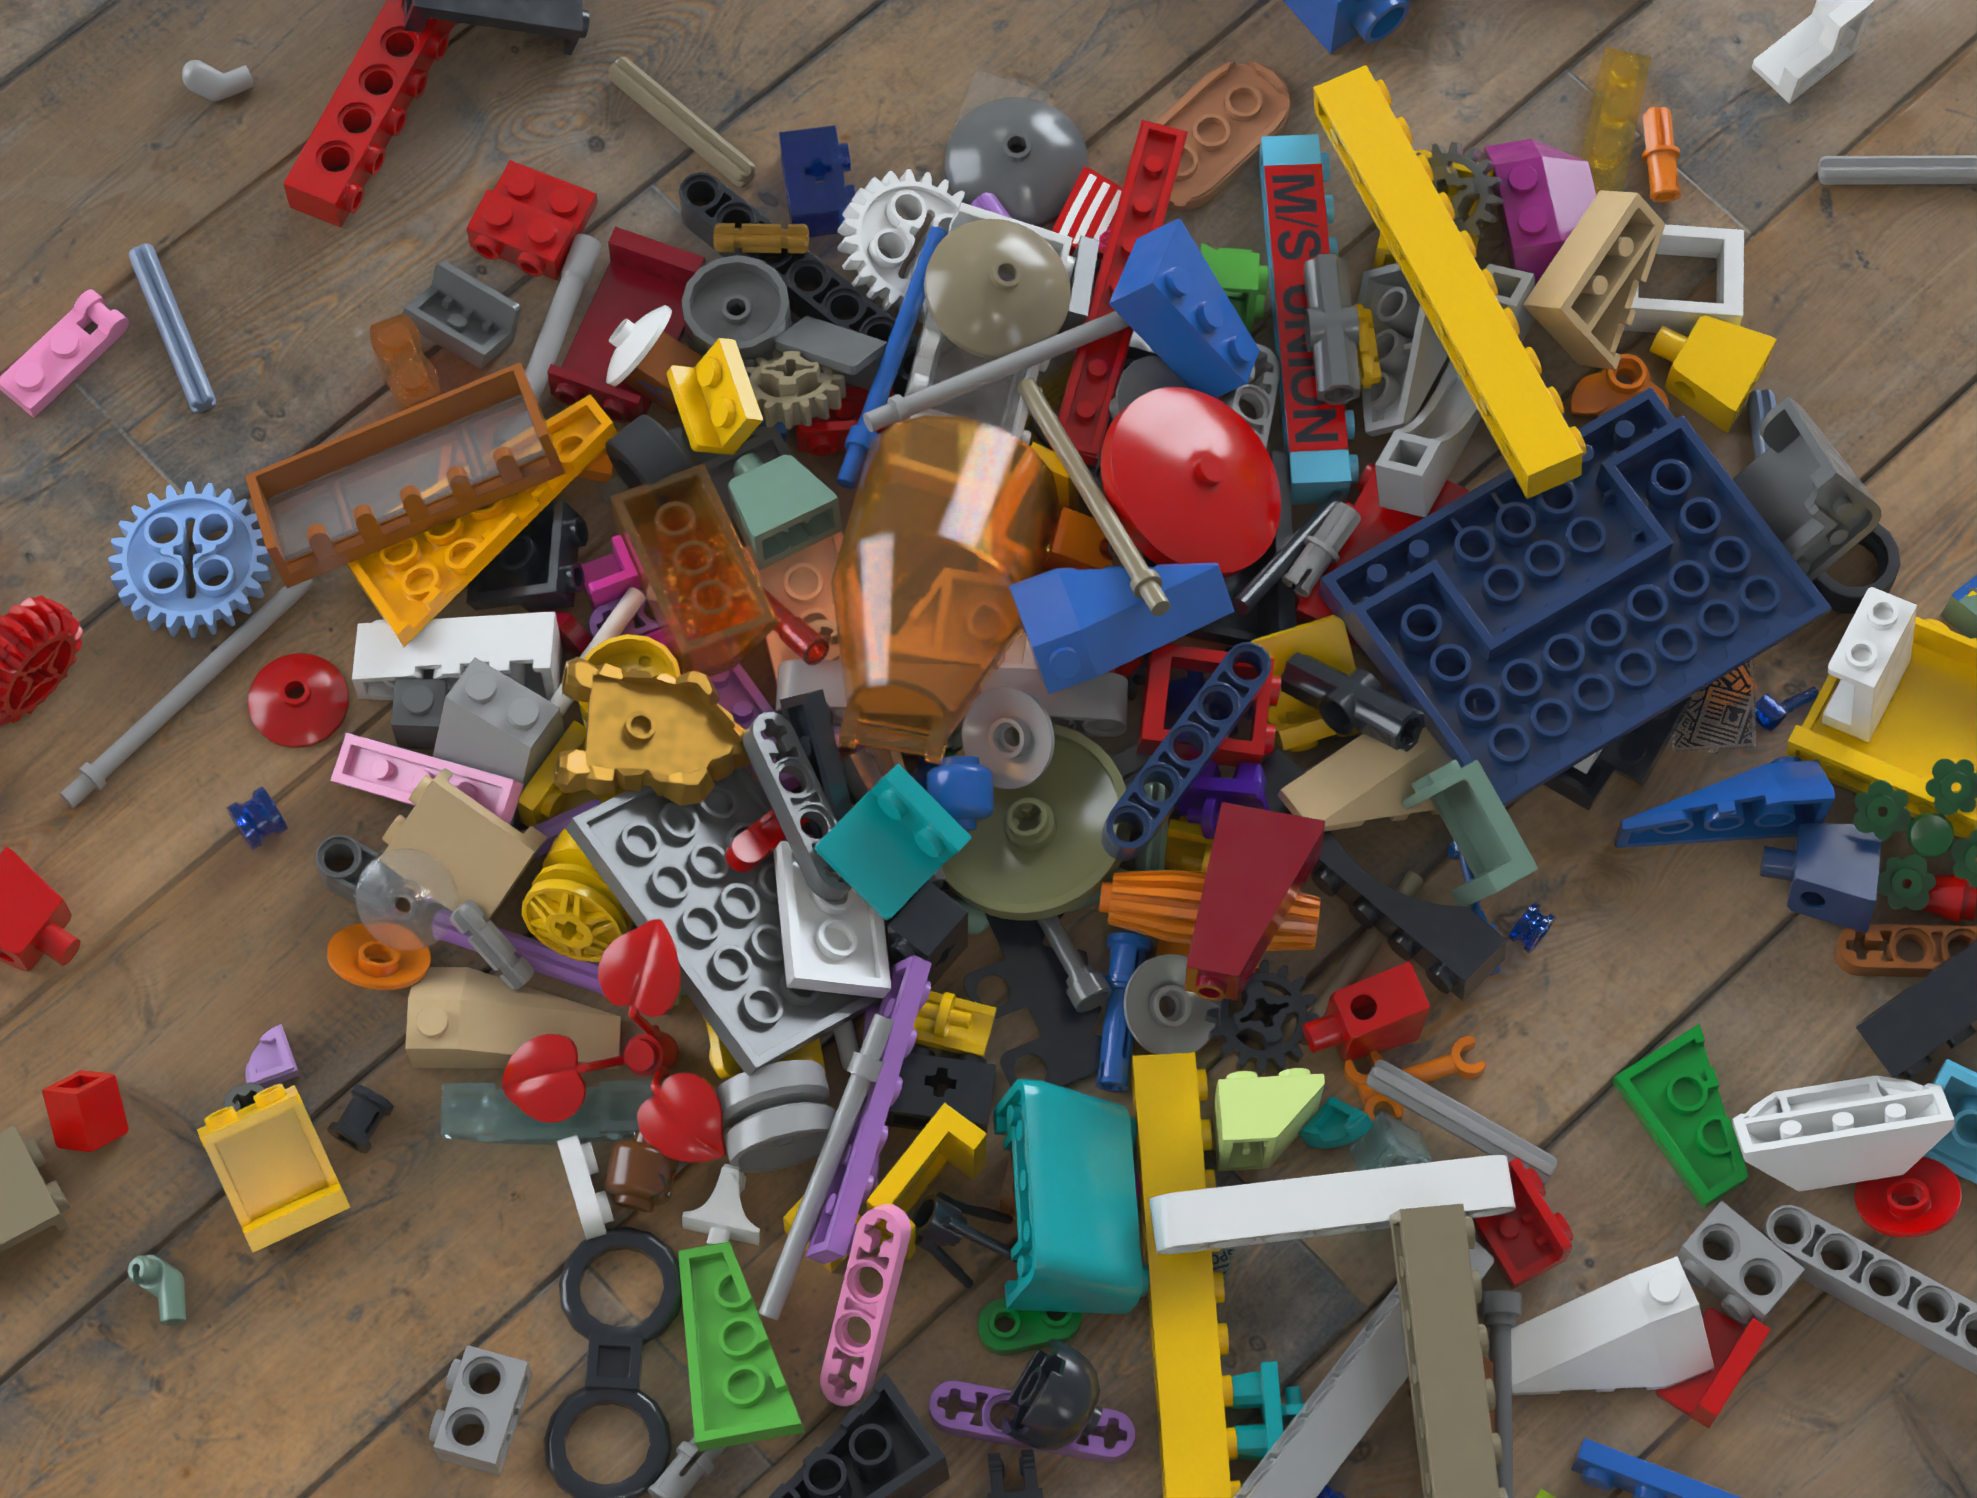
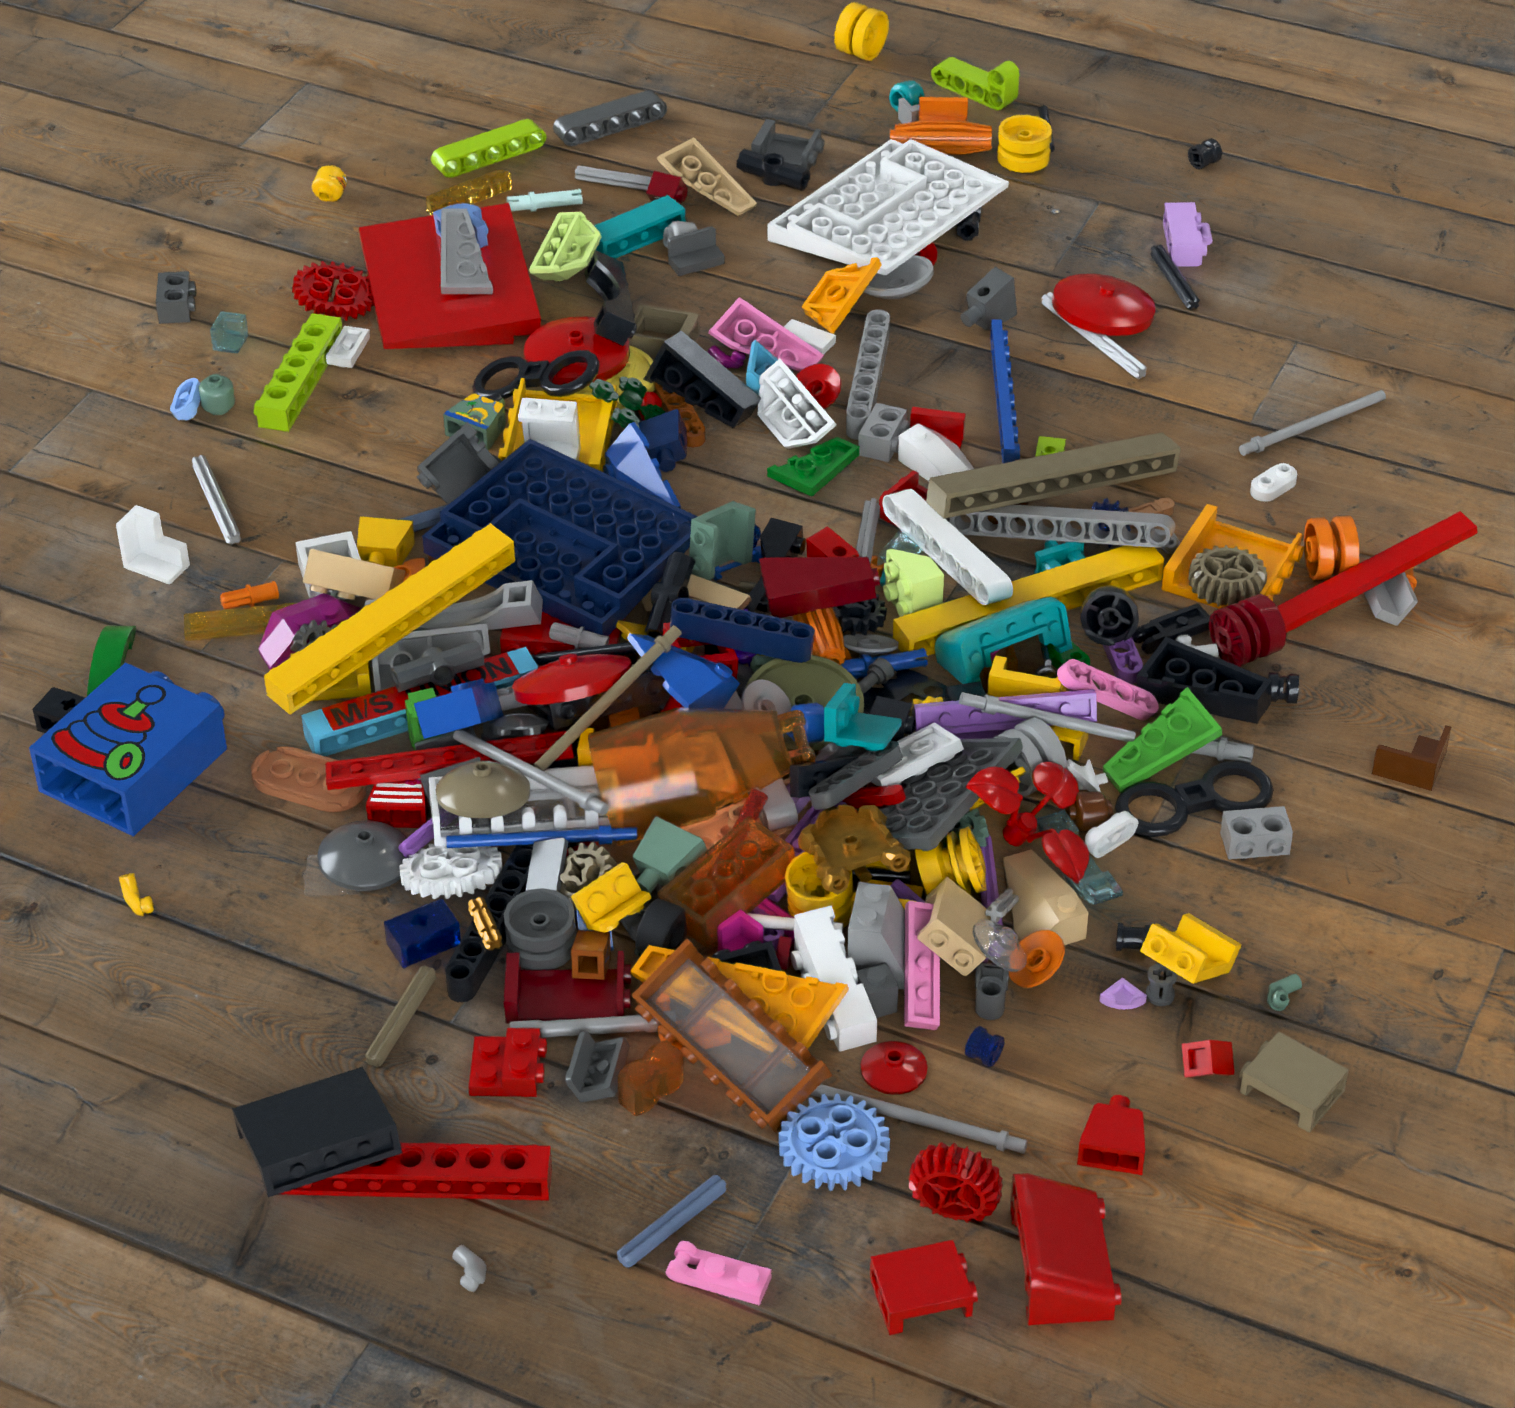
camera: 110 degrees left, 25 degrees down
(634, 343) = (588, 947): white dish -> none

